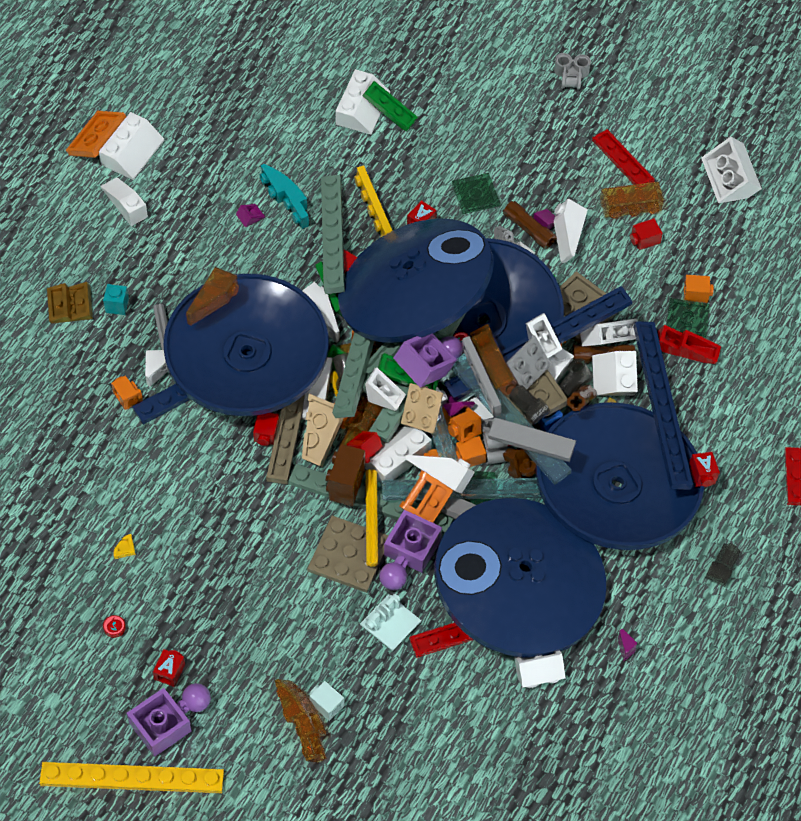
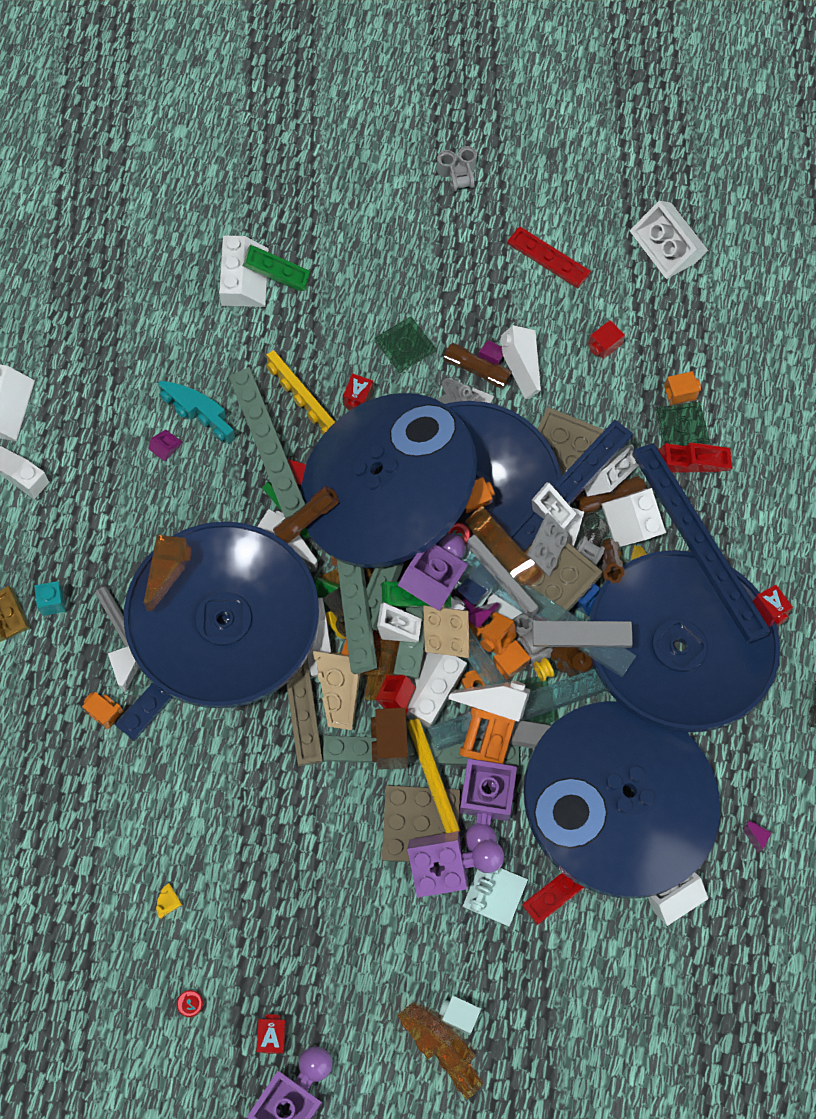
camera: 20 degrees left, 10 degrees up
(266, 428) = (277, 706): red brick -> none
(352, 283) = (319, 504): none -> reddish brown axle
(362, 572) = (452, 873): none -> medium lavender brick
(485, 313) = (480, 496): none -> orange brick
(494, 465) = (543, 669): none -> yellow bush
(531, 408) = (569, 595): clear smoke piece -> none
(566, 385) = (589, 550): none -> light grey bush
(631, 200) = (576, 304): clear orange brick -> none

